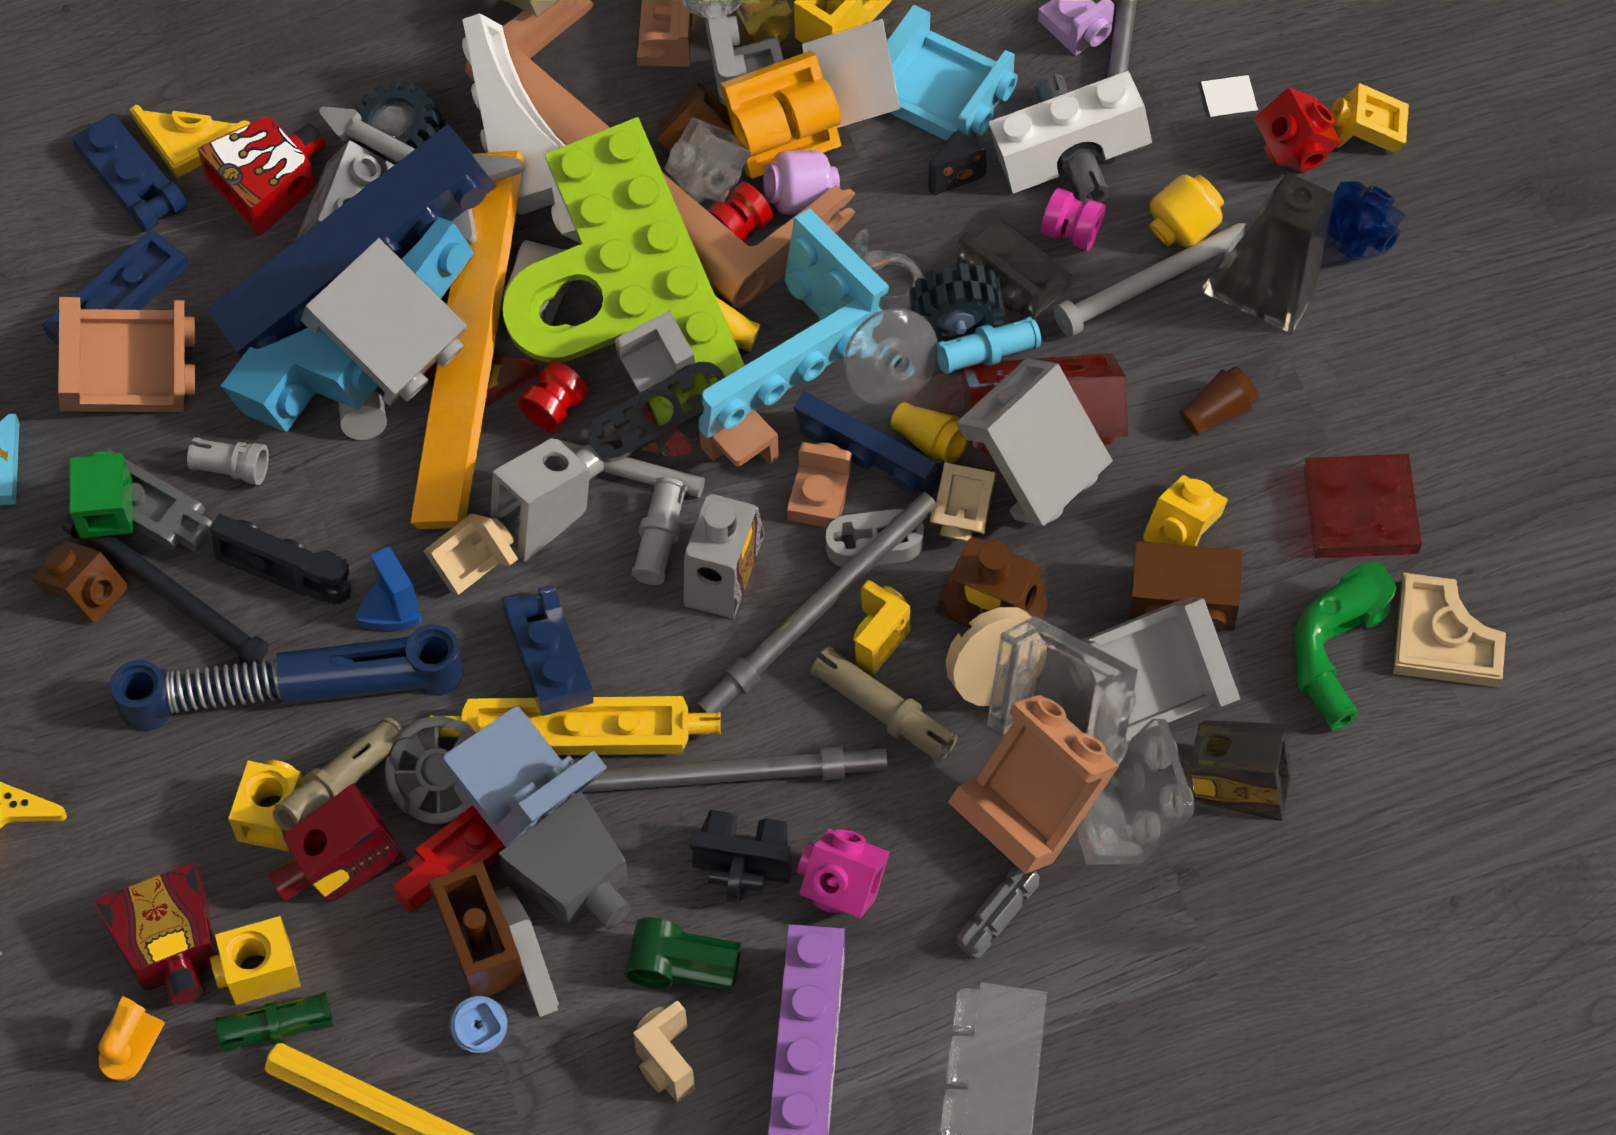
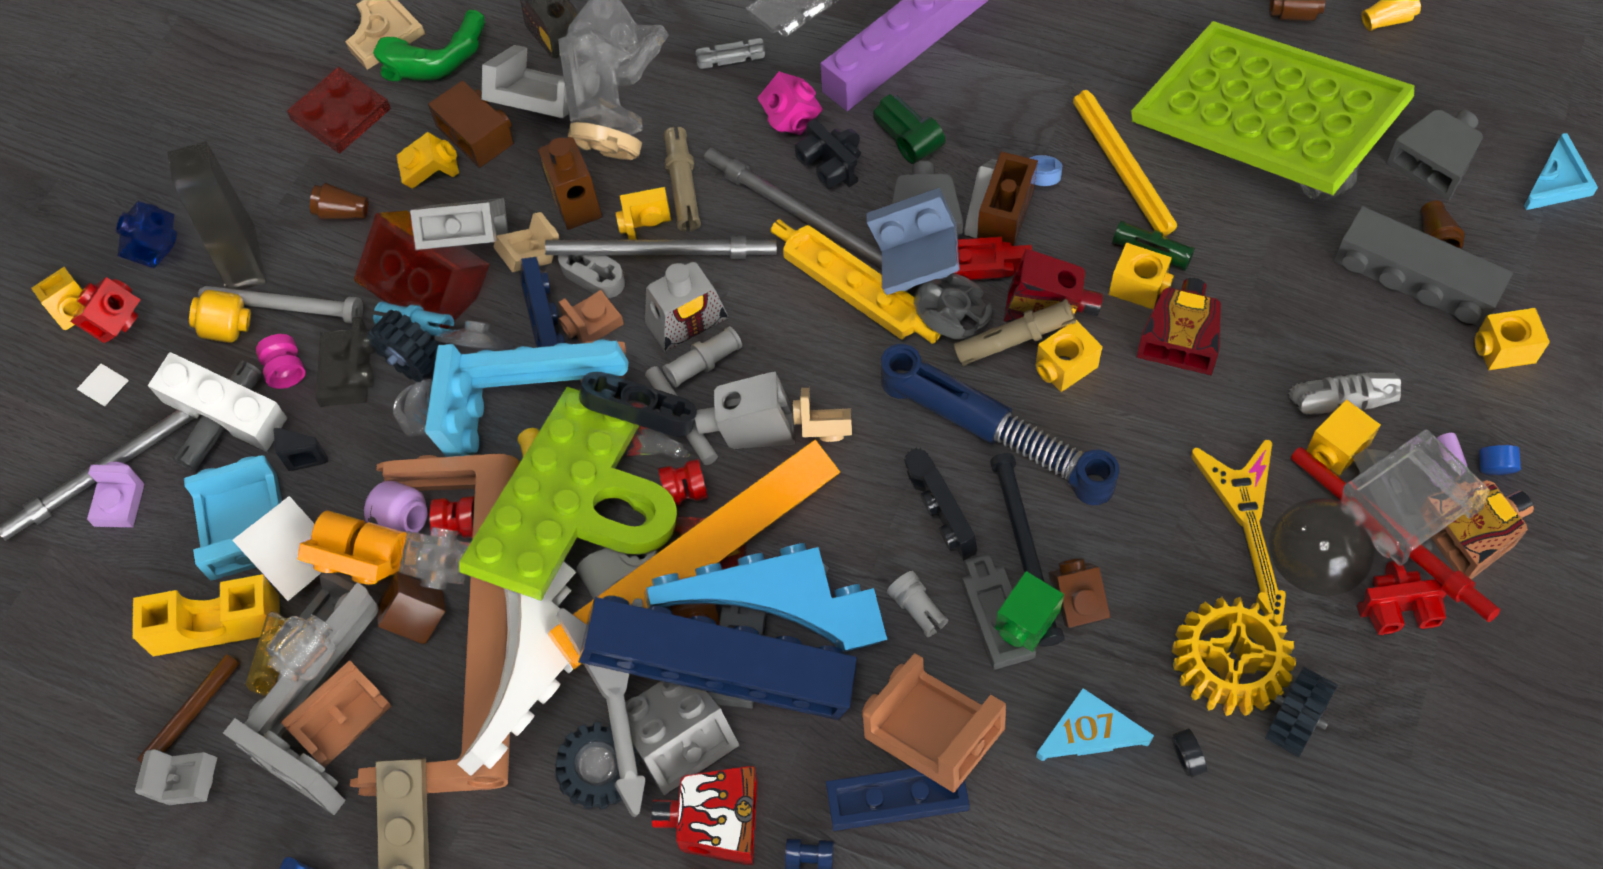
camera: 135 degrees left, 0 degrees up
(127, 1041) = (1245, 287): light orange piece -> none
(387, 322) = (753, 564): light grey panel -> none
(391, 600) = (894, 432): blue tile -> none
(548, 651) = (832, 328): dark blue plate -> none
(654, 351) = (601, 427): light grey panel -> none
(661, 1061) = (956, 101): tan bracket -> none
(930, 432) = (498, 299): yellow cone -> none
(1036, 784) = (655, 68): nougat panel -> none

